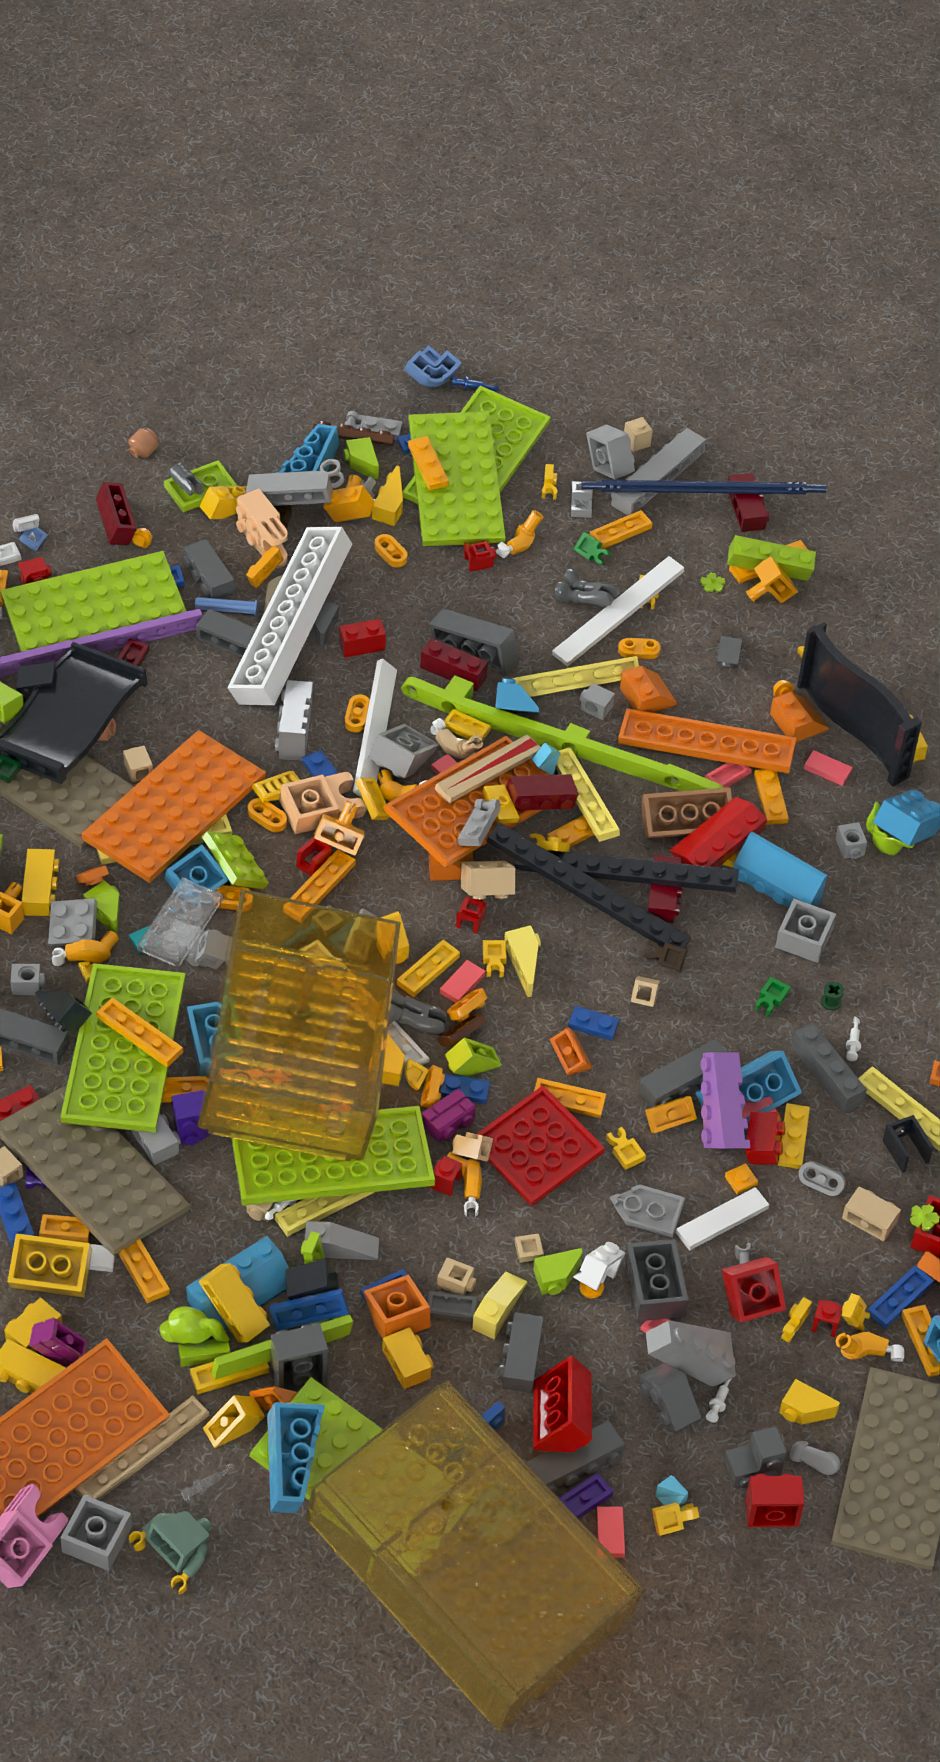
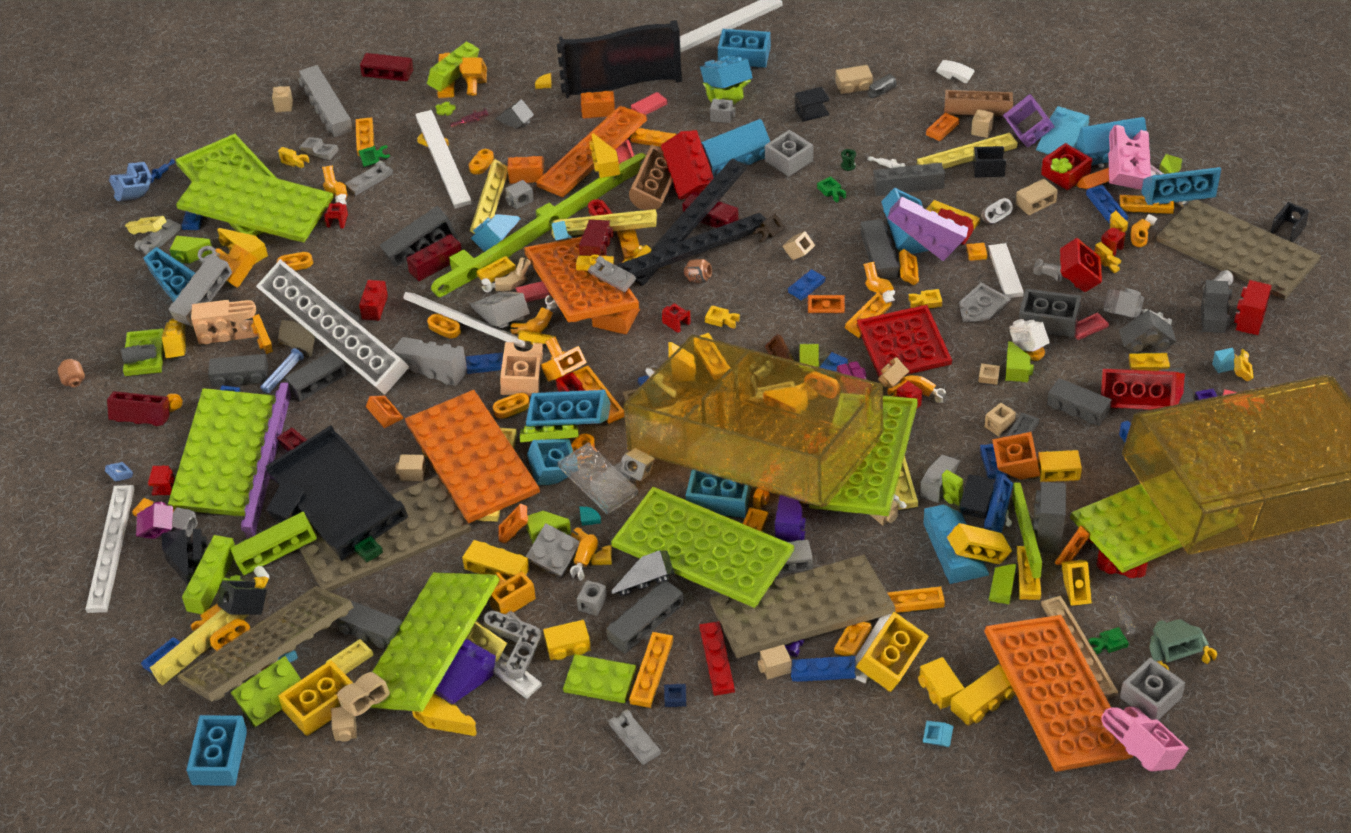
camera: 60 degrees left, 5 degrees down
(26, 523) = (105, 466): white slope -> none
(57, 1342) = (970, 665): magenta brick -> none
(139, 1032) = (701, 526): light orange plate -> none
(163, 1481) = (1110, 640): none -> green plate
(191, 1326) = (981, 584): lime hair -> none
(214, 712) = (383, 410): none -> orange slope
(267, 861) = (568, 408): none -> dark azure slope
(272, 784) = (490, 388): yellow slope -> none
(291, 1448) = (1146, 536): dark azure wedge -> none
(346, 432) = (165, 242): reddish brown plate -> none
(374, 407) = (146, 224): none -> light yellow hinge
(428, 463) = (235, 206): light orange plate -> none
(462, 981) = (731, 337): coral tile -> none
(472, 1001) = (757, 341): light orange plate -> none
(487, 769) = (557, 260): tan tile -> none
(488, 878) = (657, 292): tan brick -> none
(498, 1305) = (1033, 403): light yellow slope -> none
(523, 950) = (735, 300): light yellow slope -> none
(555, 560) = (369, 178): none -> light grey plate
(557, 909) = (698, 270): none -> nougat head
(585, 592) = (415, 167): dark grey piece -> none
(608, 787) = (598, 207): none -> red plate
(610, 451) = (295, 111): light grey brick -> none
(625, 1091) = (878, 284): none -> light orange arm
(634, 1413) = (1149, 361): none -> yellow plate
(681, 754) = (604, 158): none -> yellow slope
(711, 613) = (475, 116): none -> clear pink piece
(729, 487) = (363, 79): dark blue axle -> none
(782, 687) = (569, 102): light orange plate -> none
(807, 1404) = (1175, 274): yellow slope -> none
(912, 926) = (811, 104): none -> black piece

